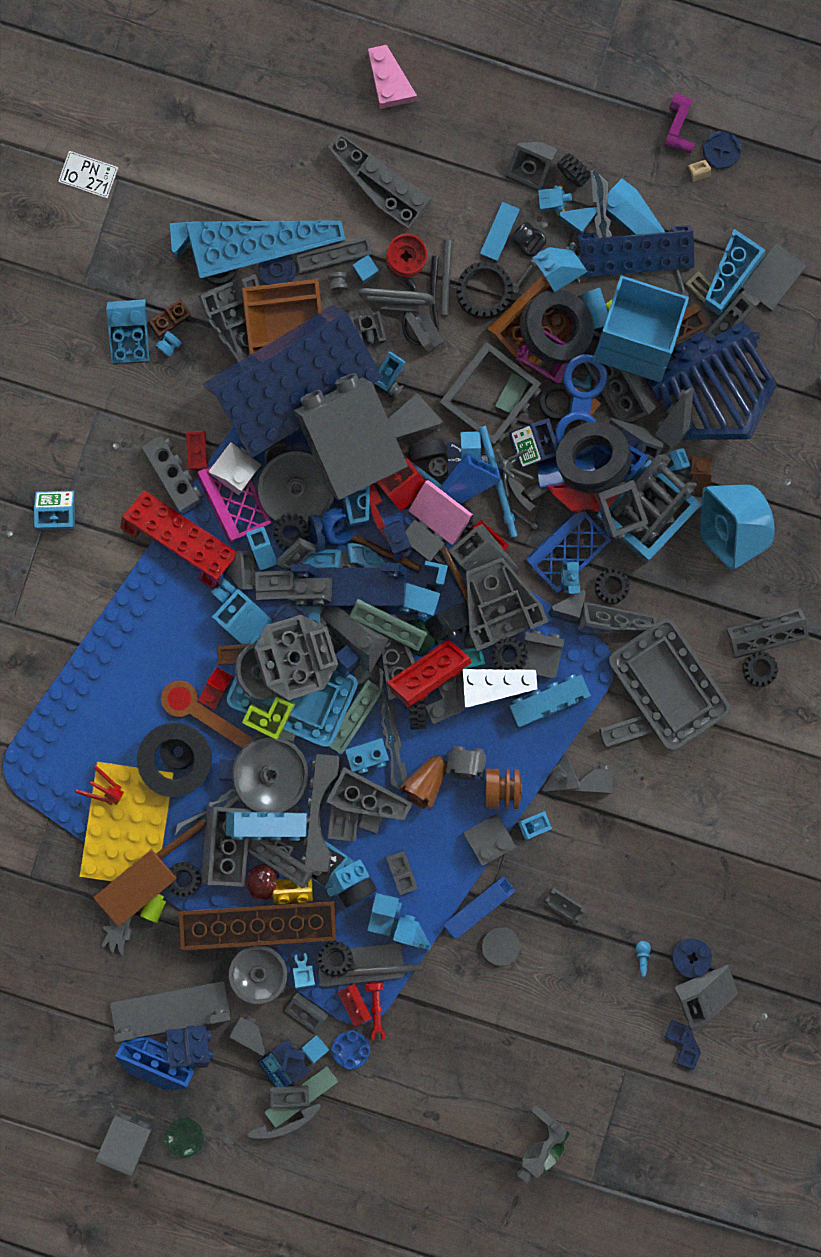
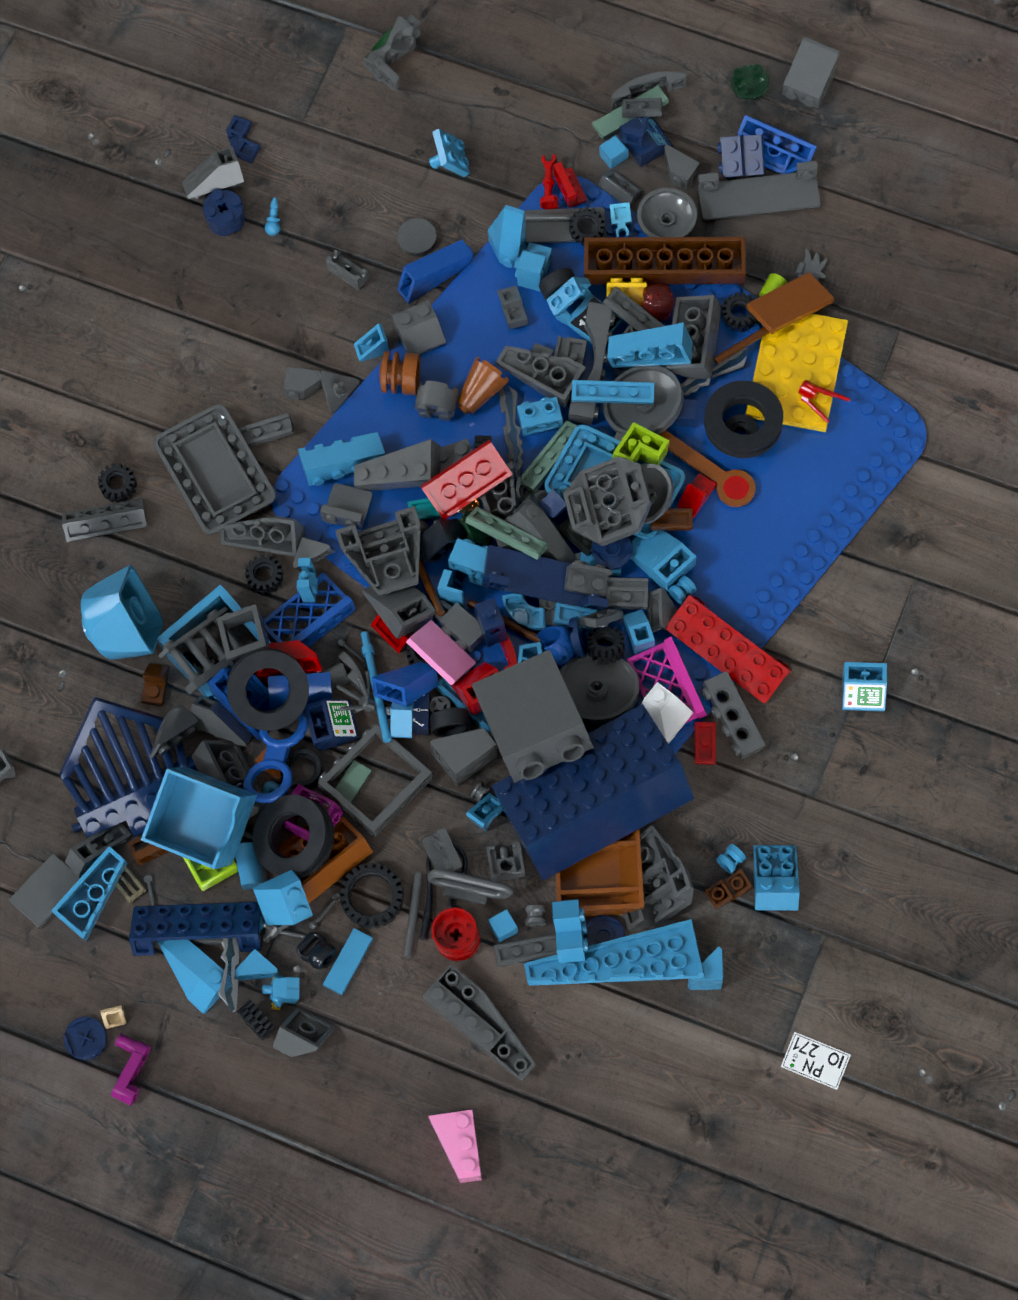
camera: 170 degrees left, 15 degrees down
(298, 776) = (612, 392): none -> dark azure plate
(306, 262) = (570, 931): none -> dark azure brick
(351, 1049) = (577, 150): blue dish -> none
(475, 1033) = (450, 153): none -> dark azure plate
(507, 643) = (380, 494): black tyre -> none
(679, 459) = (175, 697): dark azure tile -> none

